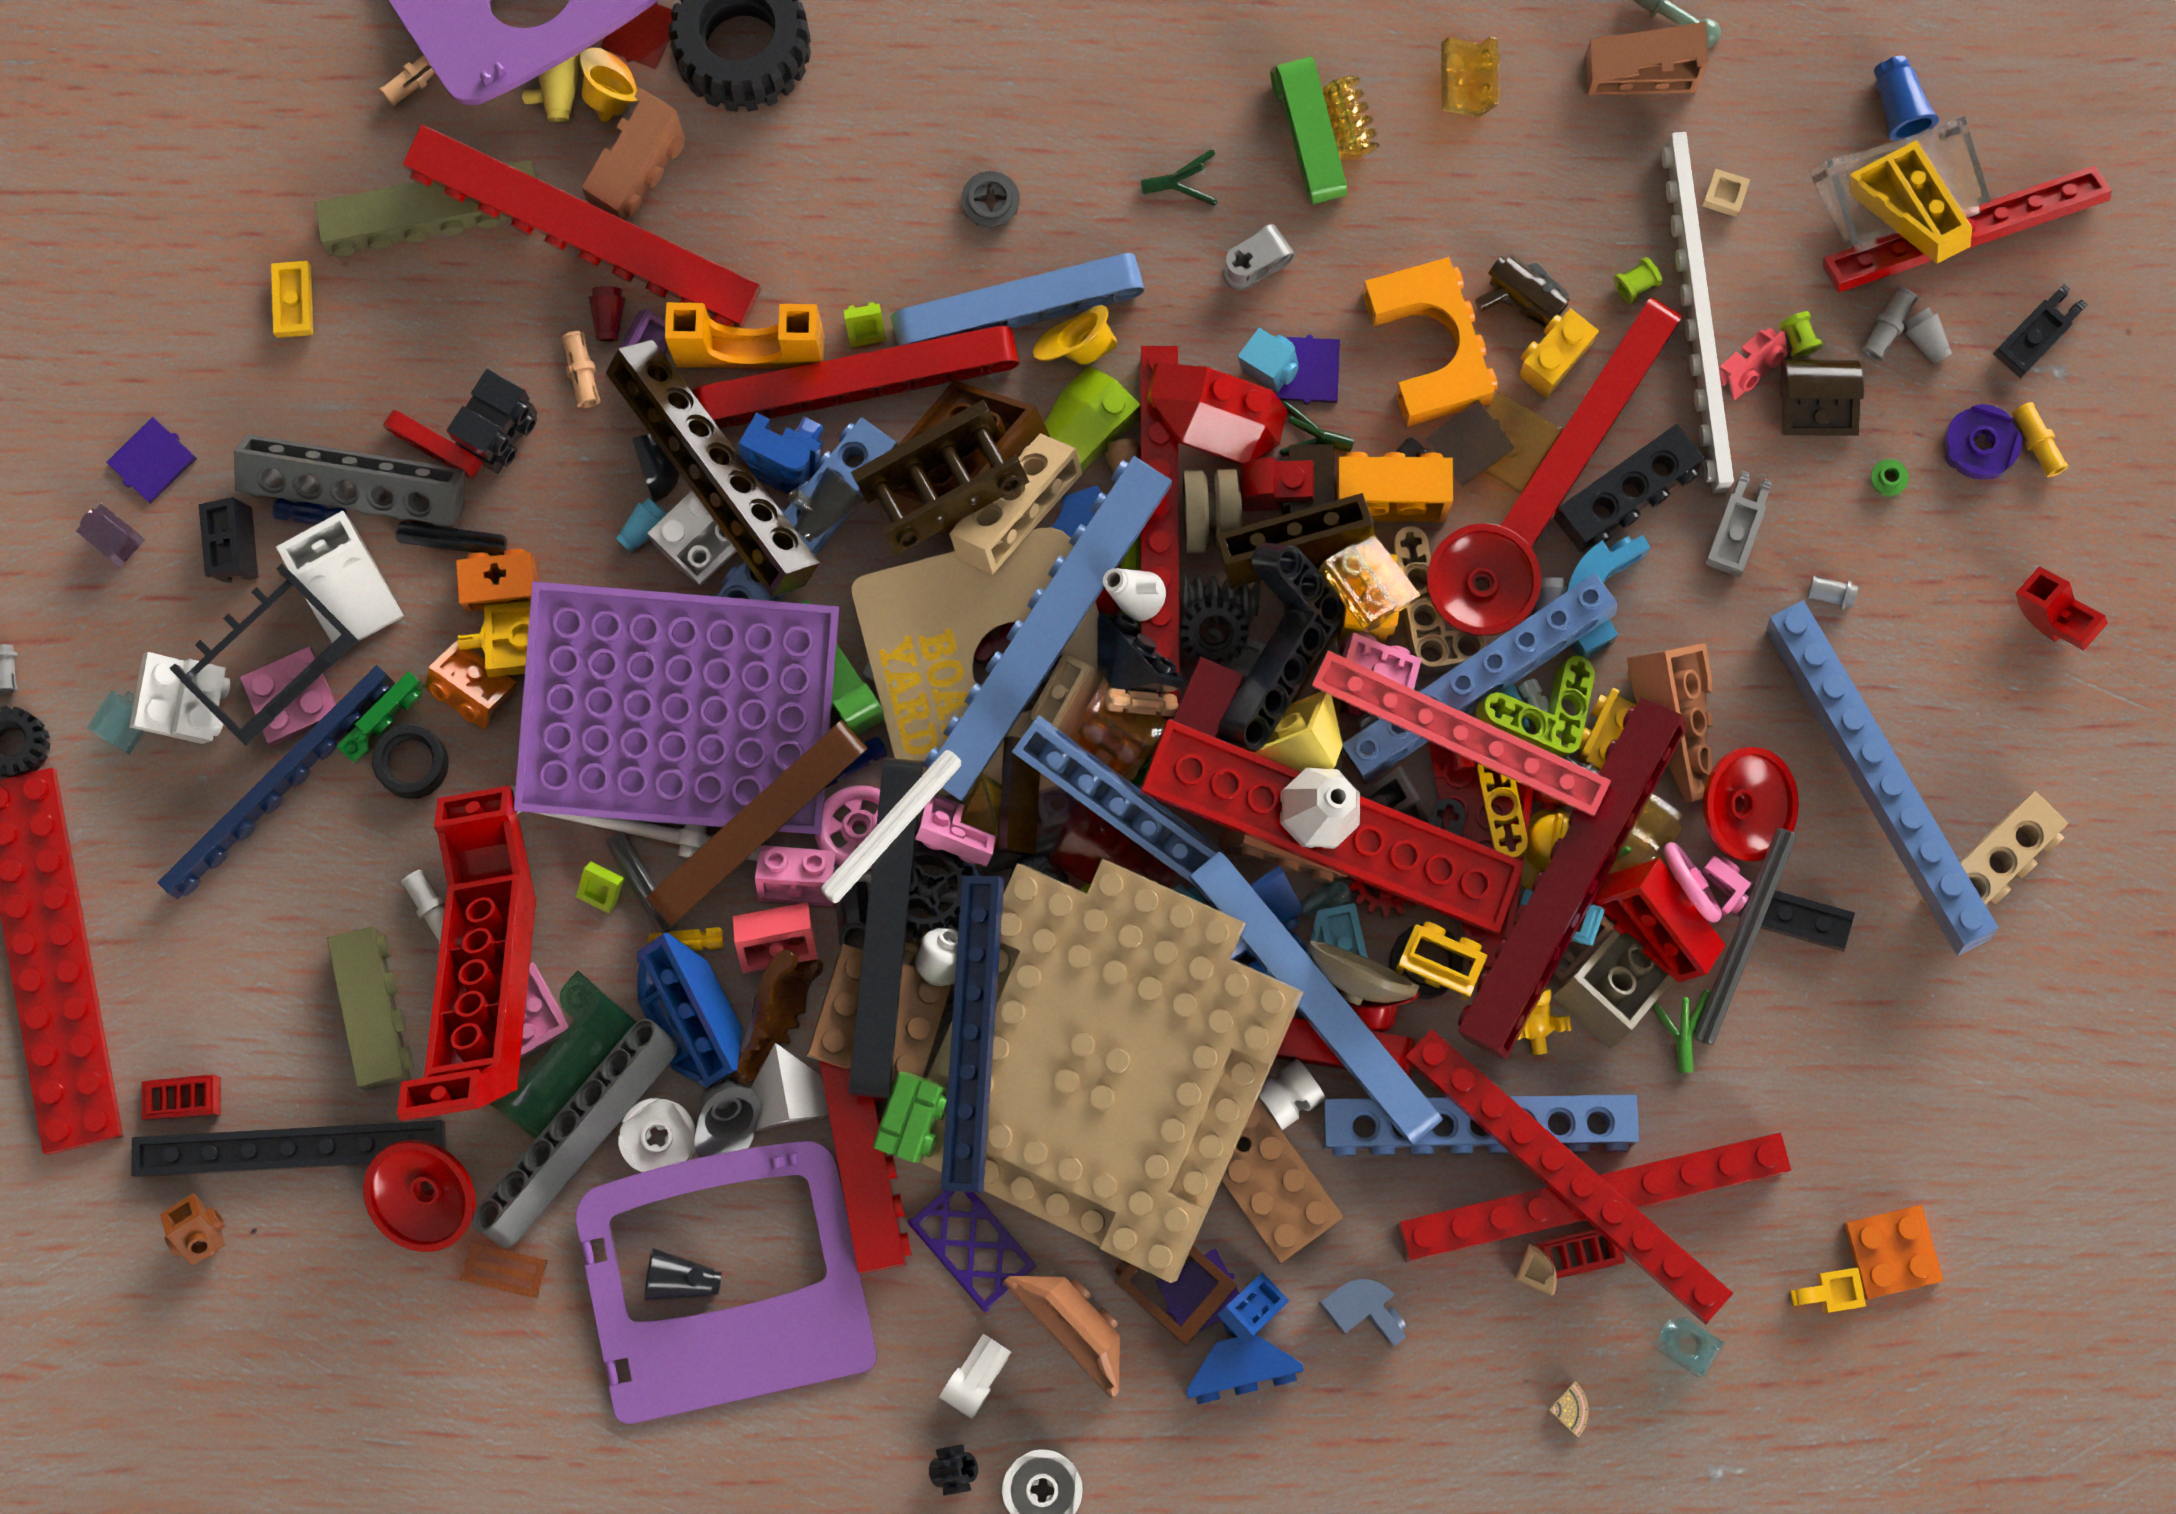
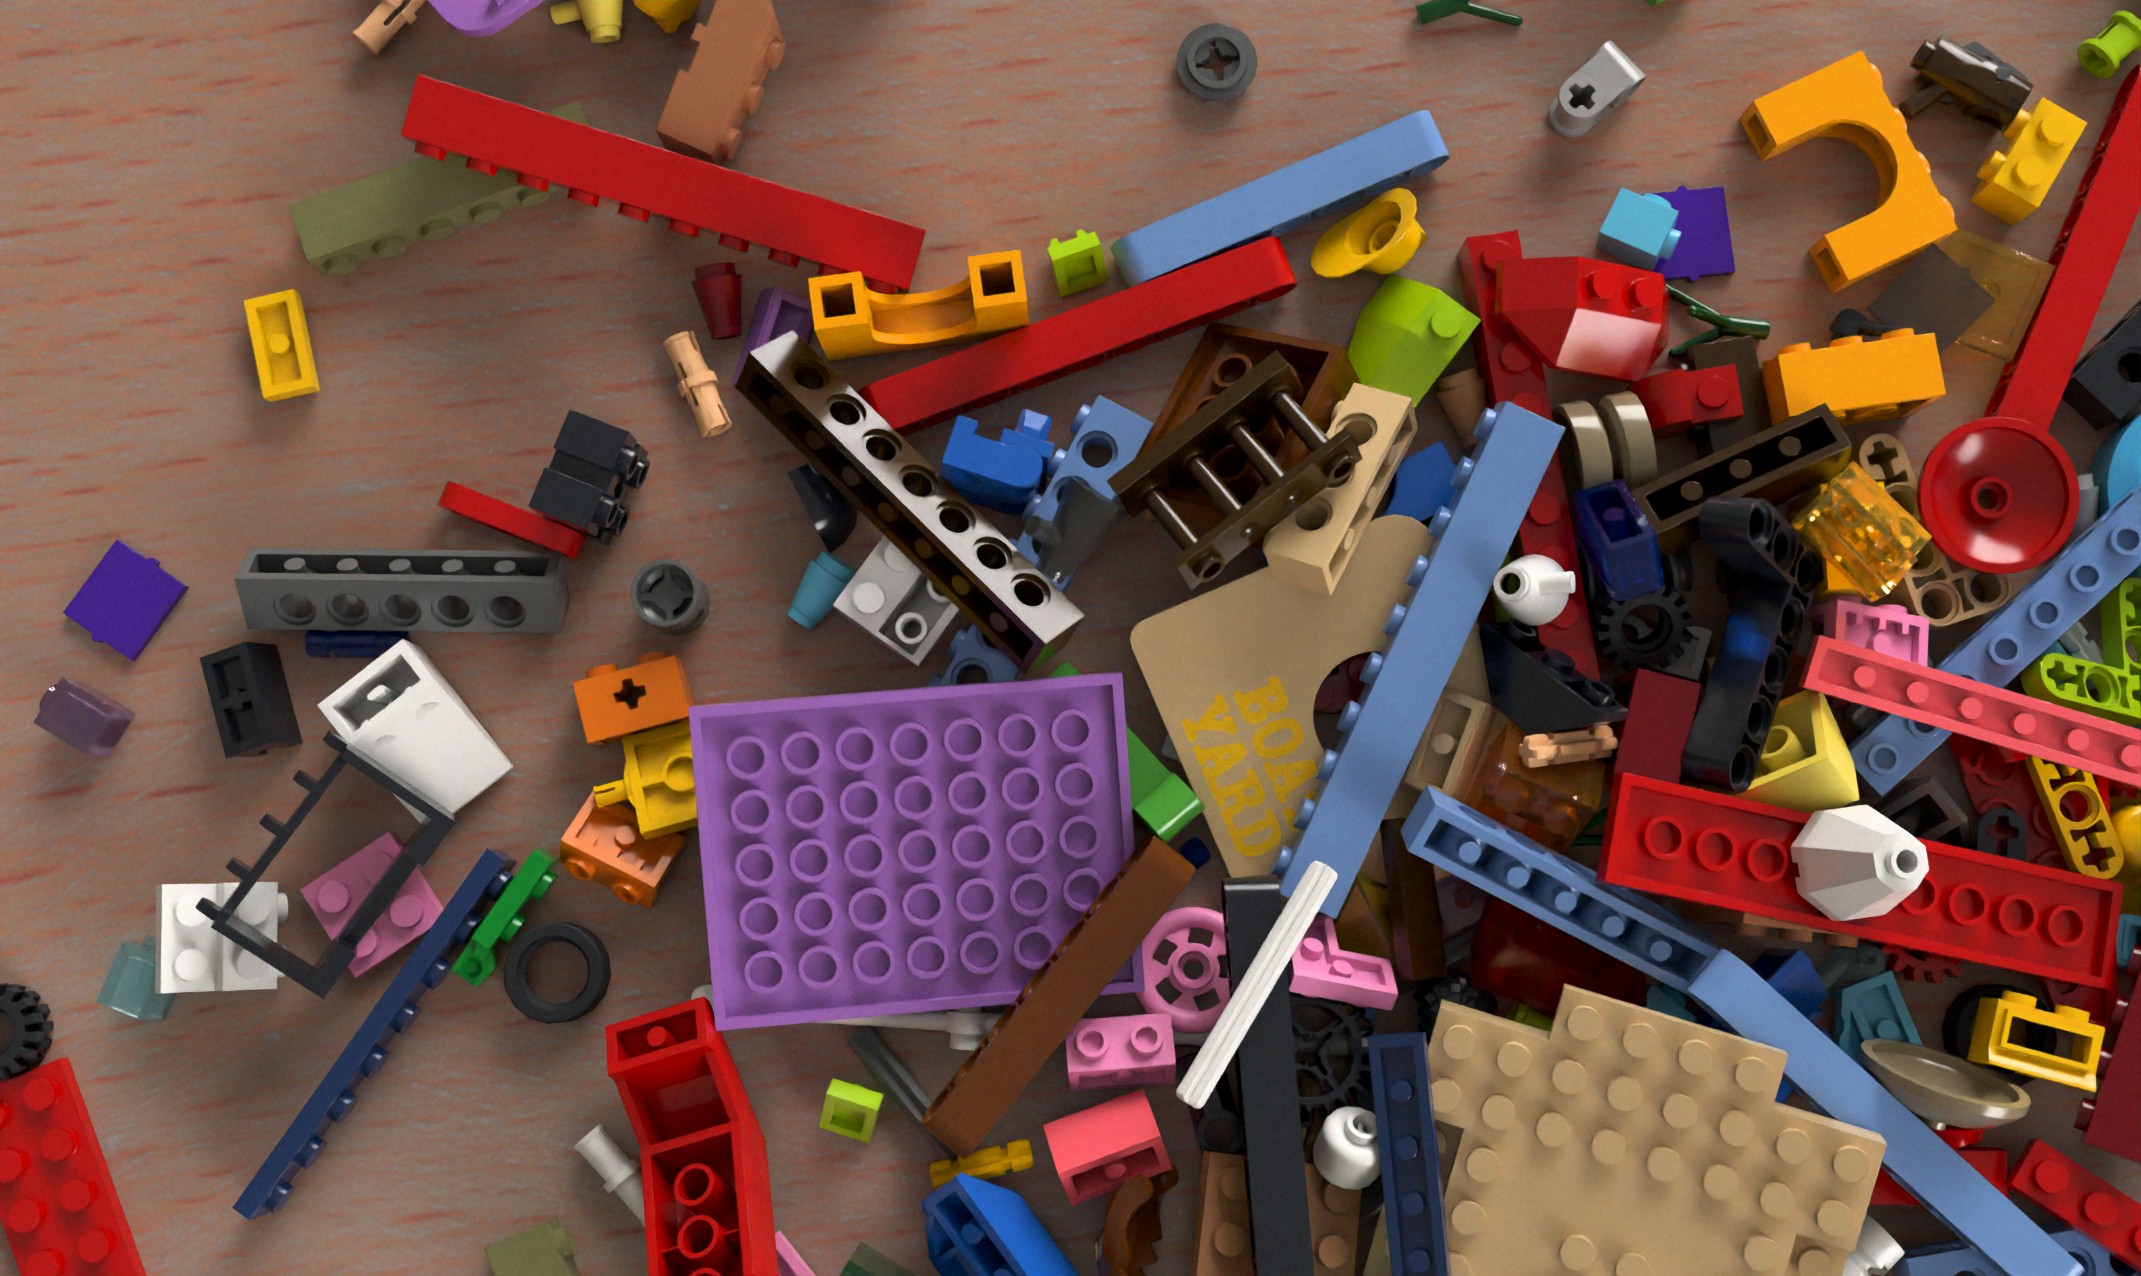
camera: 10 degrees left, 5 degrees up
(451, 538) = (560, 648): black axle -> none
(535, 513) = (670, 597): none -> dark grey wheel
(1200, 566) = (1618, 540): none -> clear blue brick

